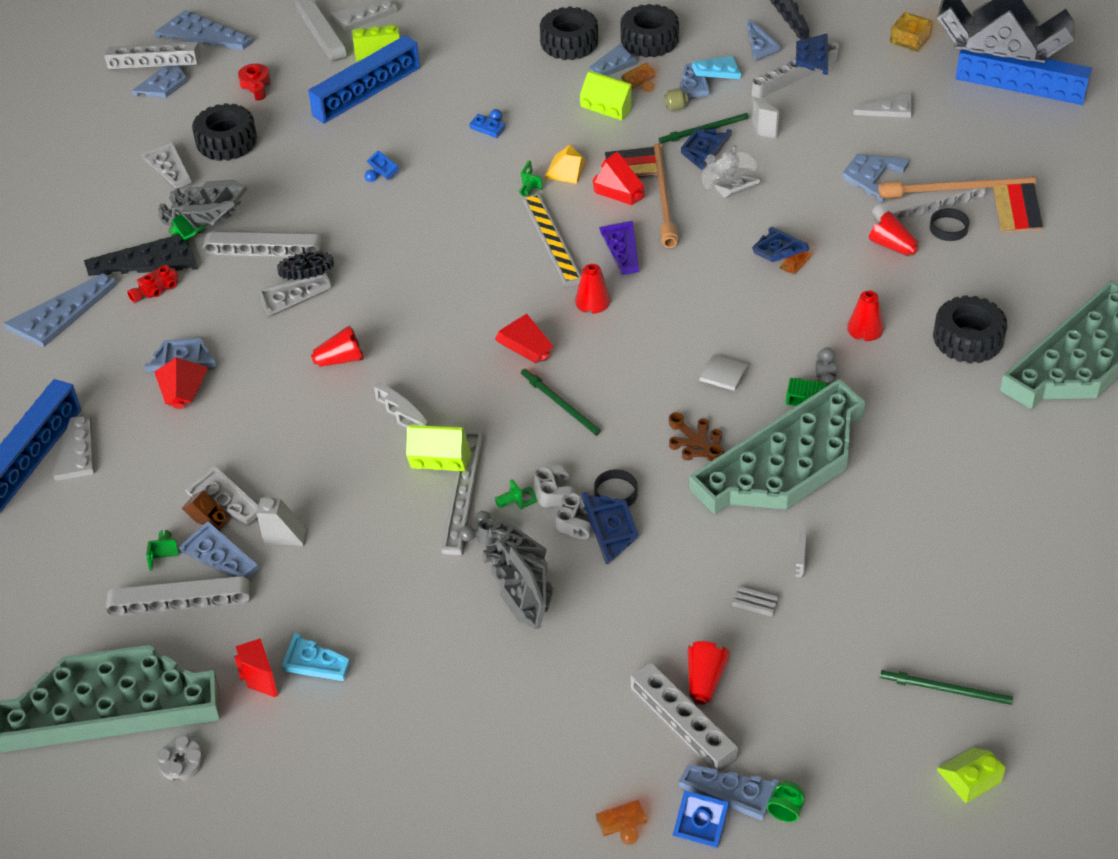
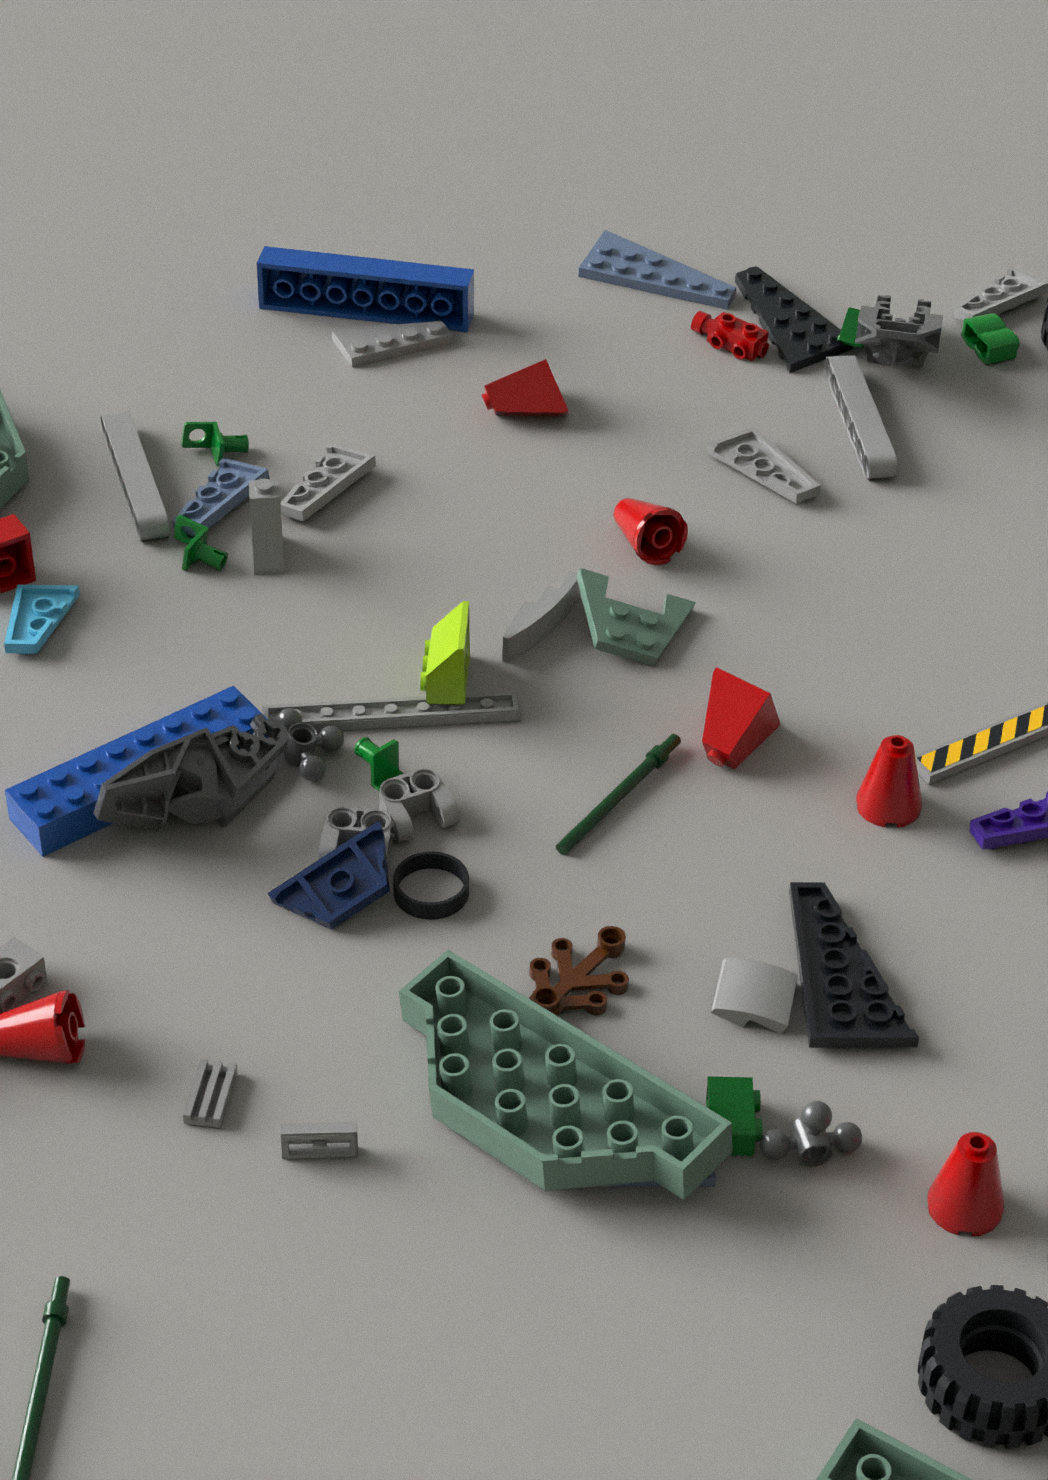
camera: 75 degrees right, 5 degrees down
(187, 349) = (592, 389): sand blue wing -> none
(204, 509) = (291, 462): reddish brown slope -> none
(214, 173) = (990, 338): none -> green brick
(276, 568) = (197, 547): none -> green bracket
(305, 265) = (821, 460): black gear -> none
(426, 373) = (627, 628): none -> sand green wing
(489, 612) = (61, 802): none -> blue brick
(719, 339) = (840, 984): none -> black wing

